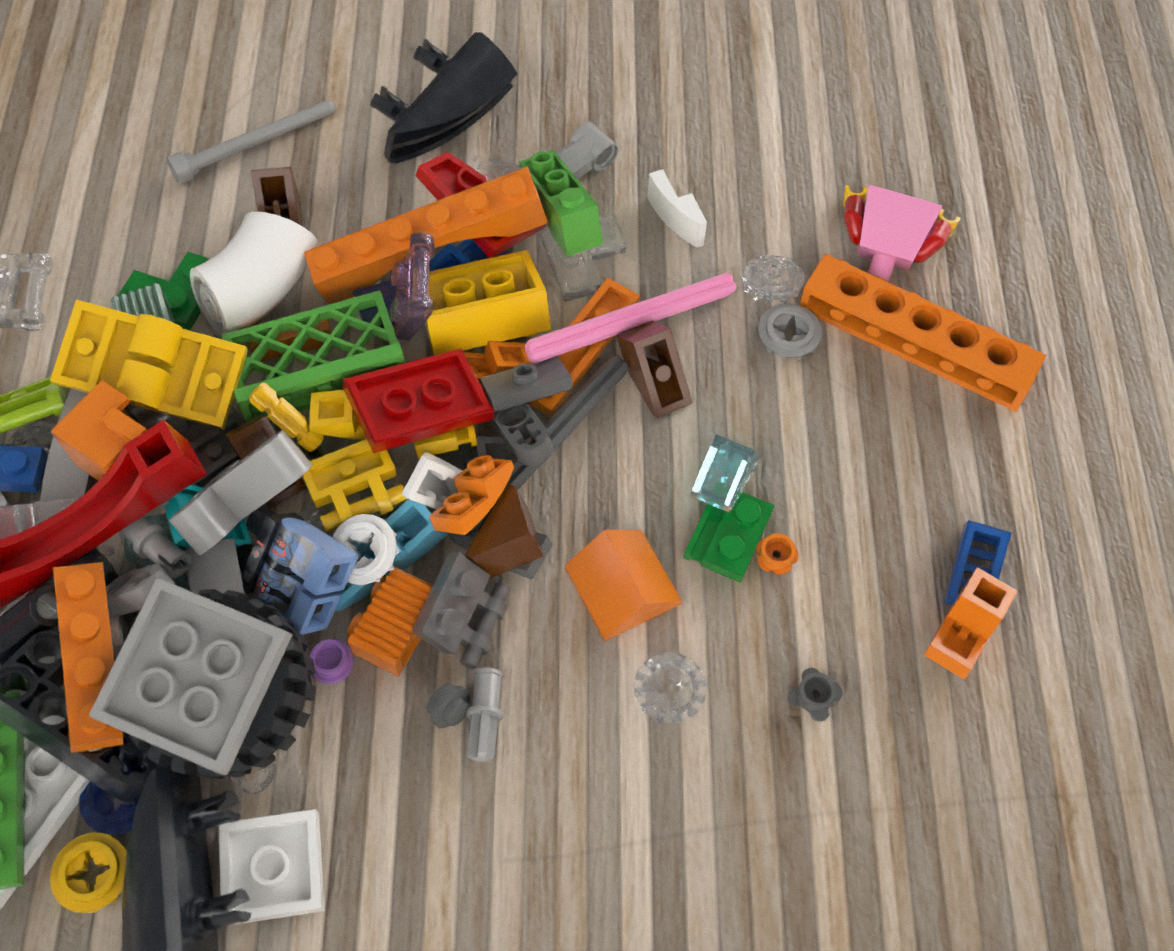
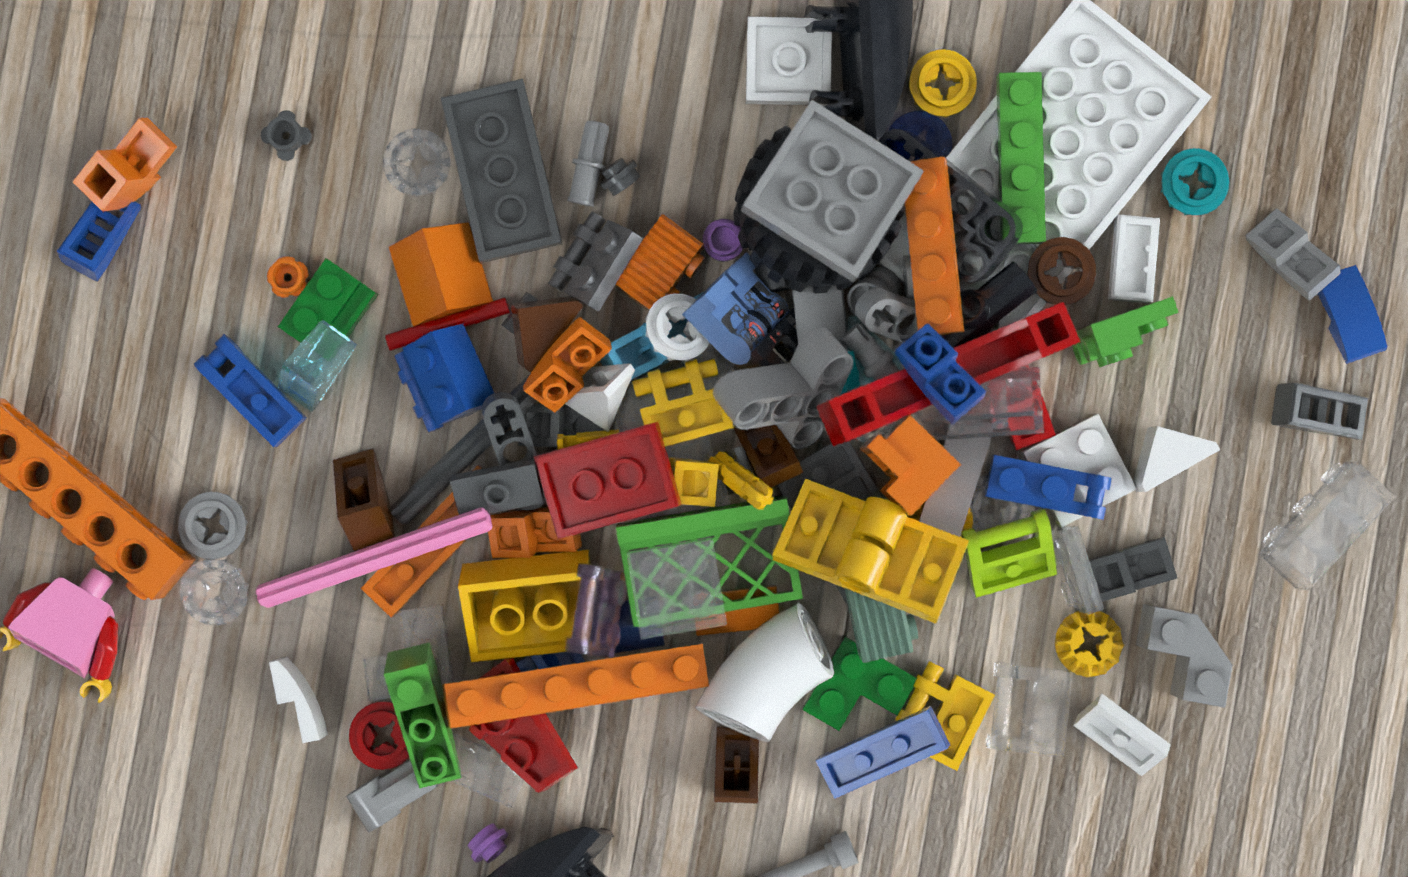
camera: 165 degrees left, 25 degrees up
(74, 518) = (938, 375): none -> blue slope
(82, 270) = (959, 712): none -> yellow plate
(143, 234) = (882, 752): none -> plate
(339, 316) = (676, 588): none -> clear plate
(490, 132) = (488, 843): none -> medium lavender plate
(578, 694) = (501, 171): none -> dark grey plate
(595, 479) = (443, 376): none -> blue brick
(614, 192) = (363, 737): none -> red gear
(636, 522) = (467, 317): none -> red bar
(786, 445) = (250, 392): none -> blue plate

